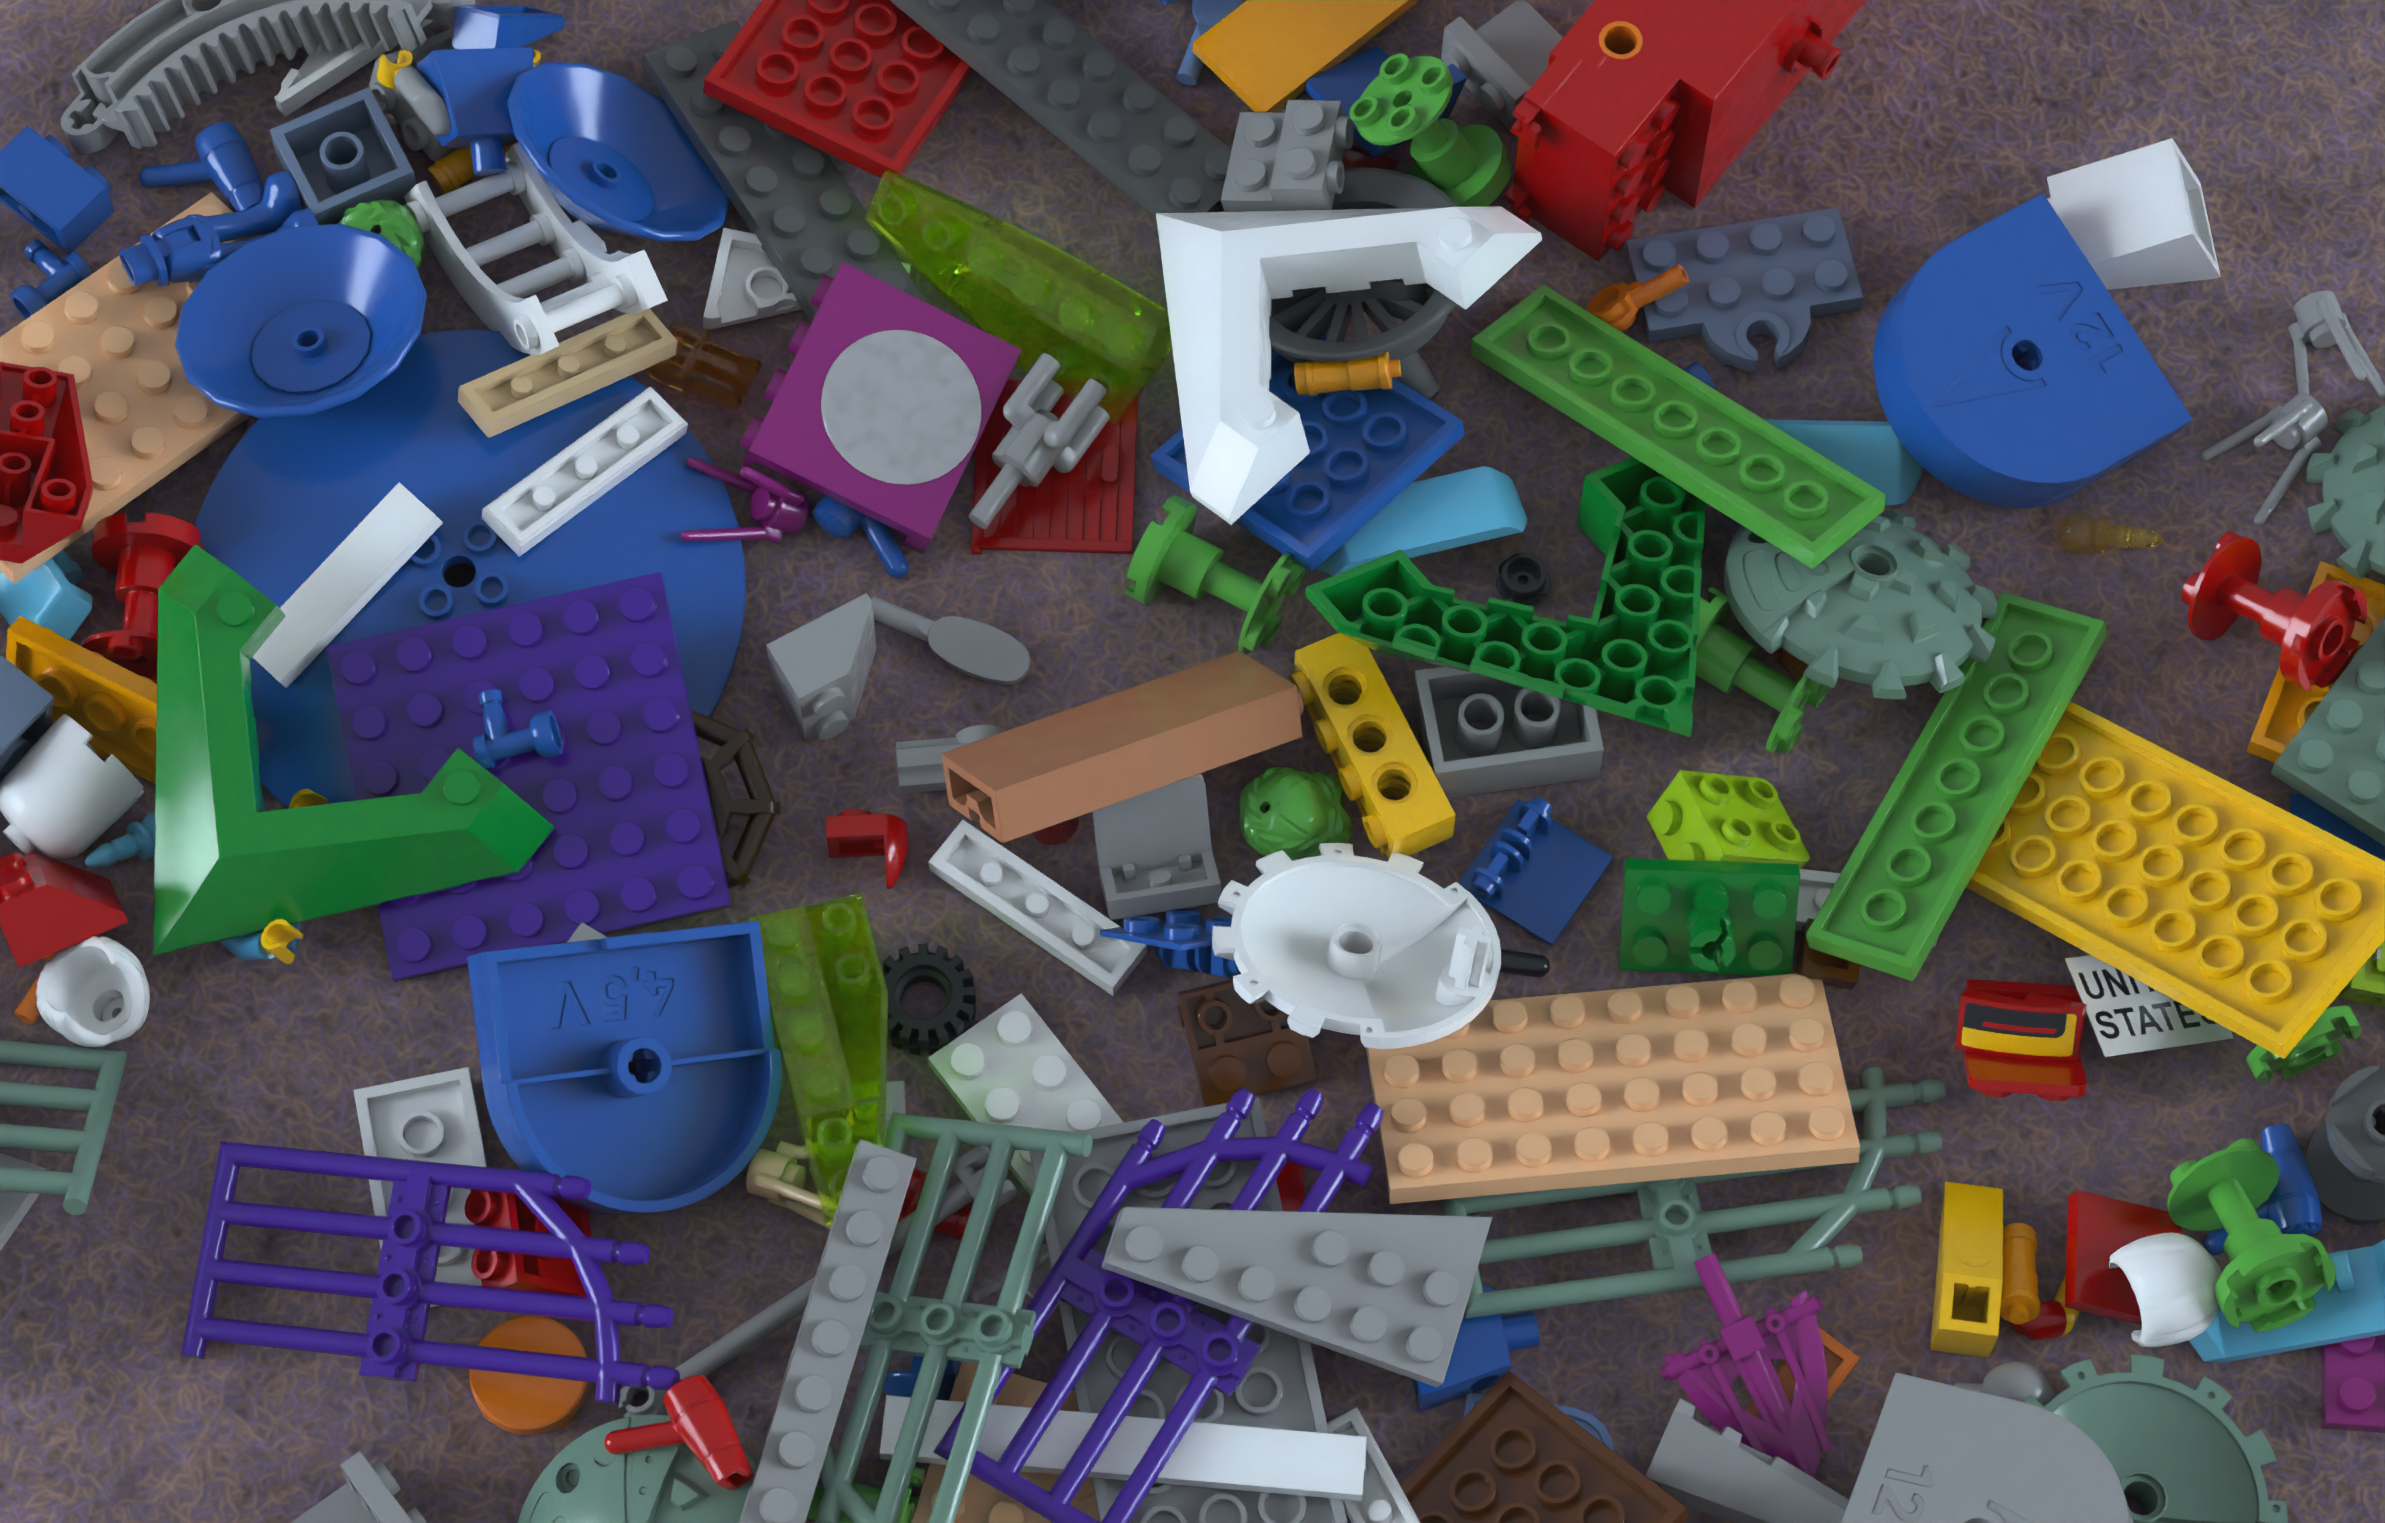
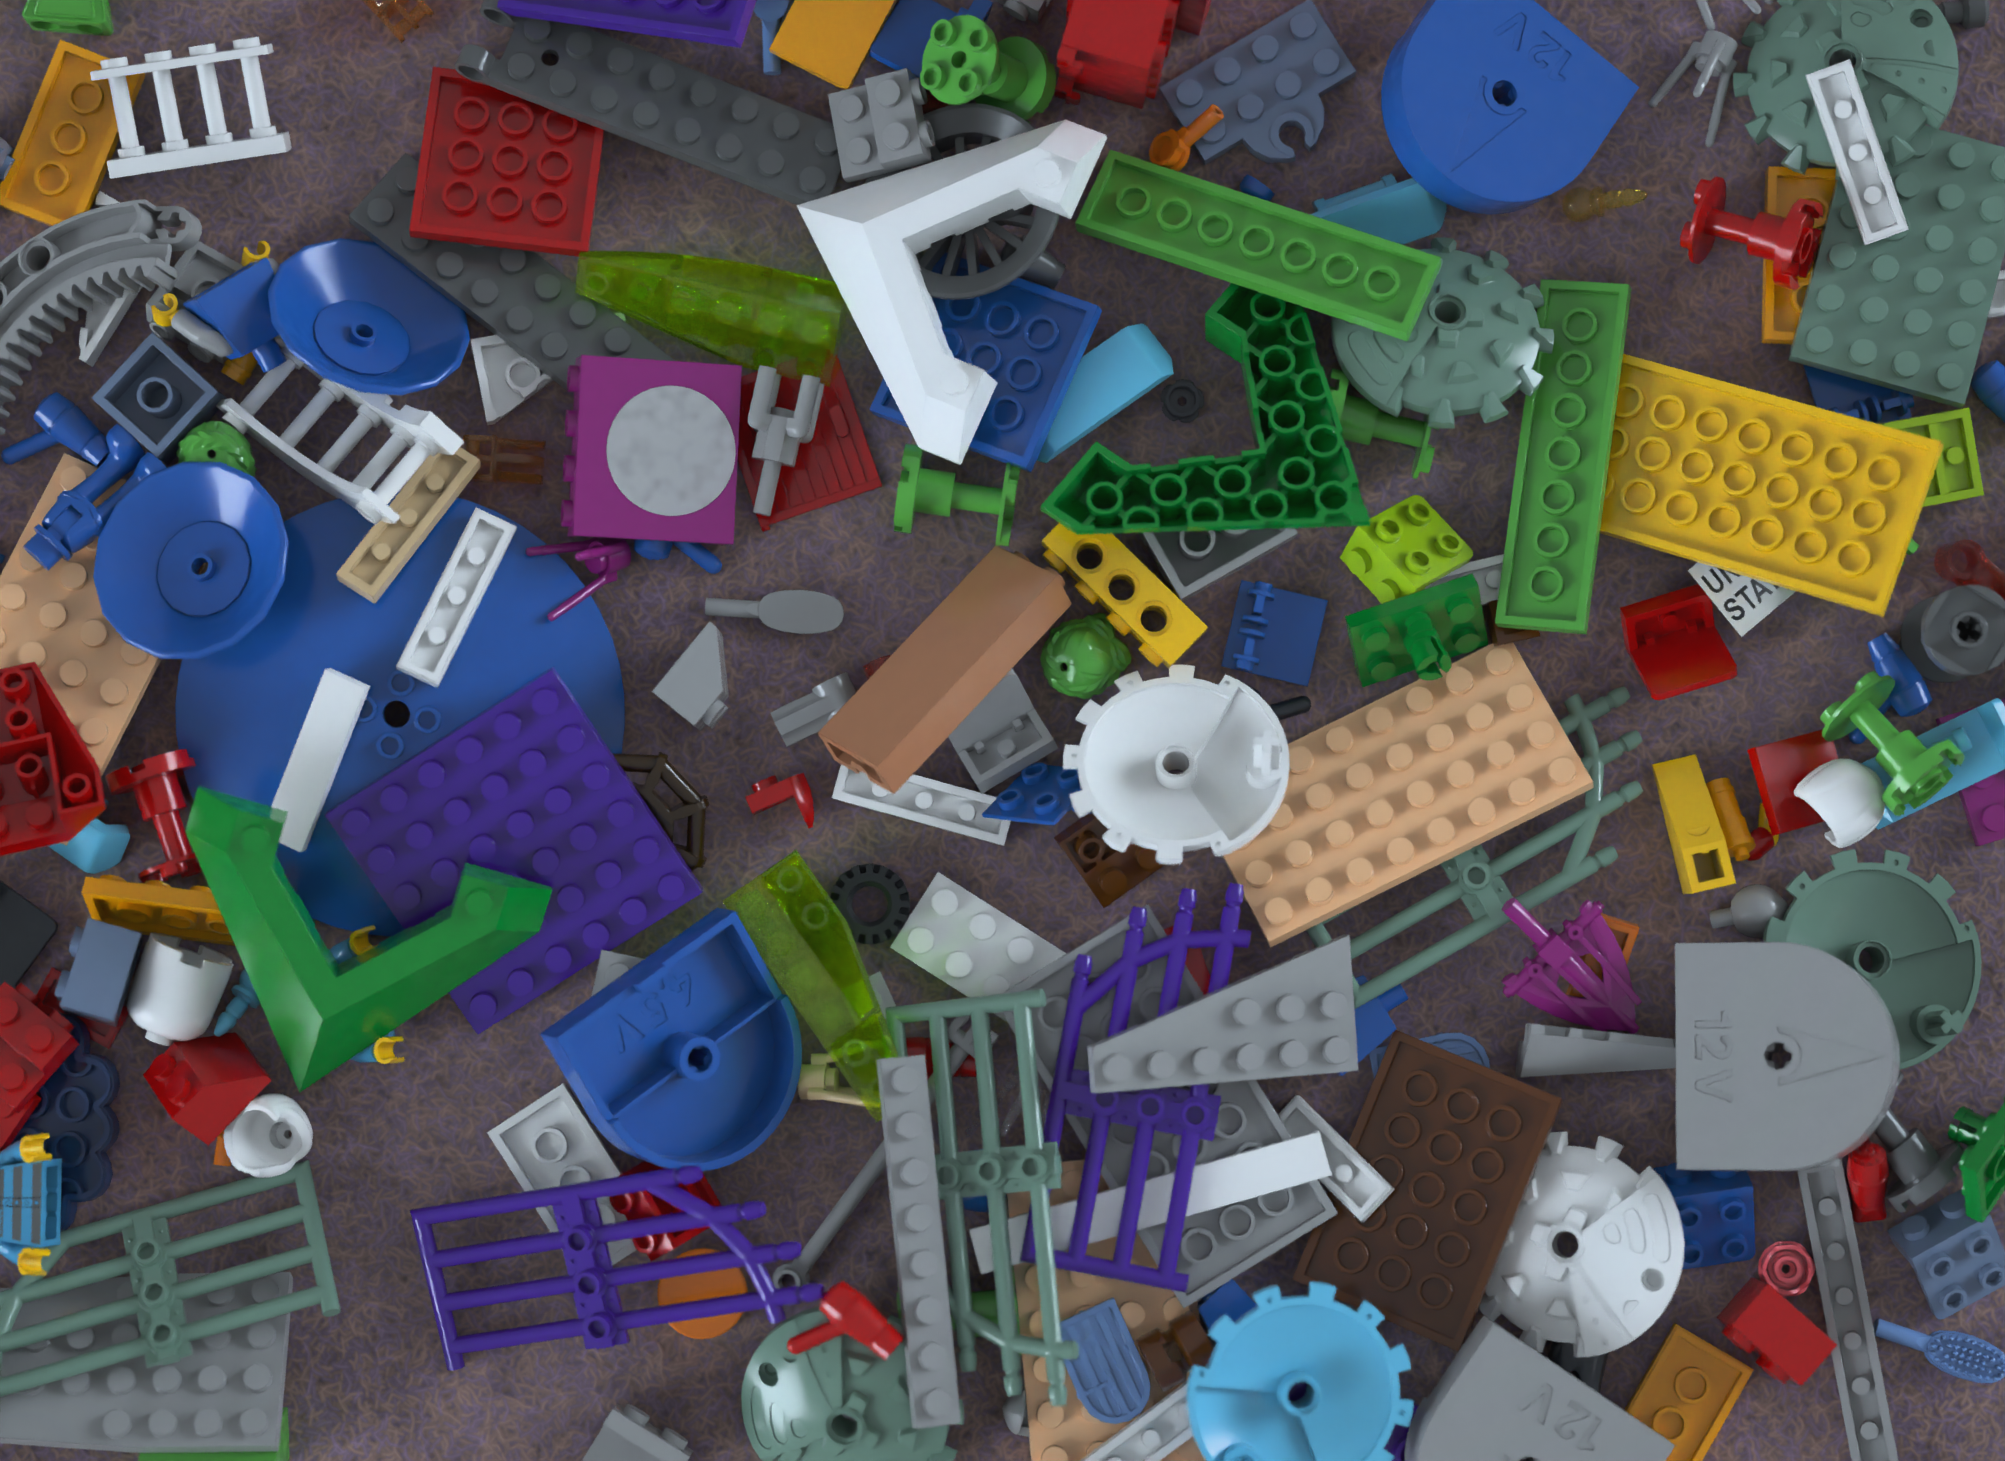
camera: 20 degrees left, 20 degrees up
(498, 743) = (485, 846): blue piece -> none
(502, 26) = (231, 235): blue slope -> none
(1355, 375) = (1017, 290): light orange piece -> none
(2018, 1028) = (1662, 638): slope -> none

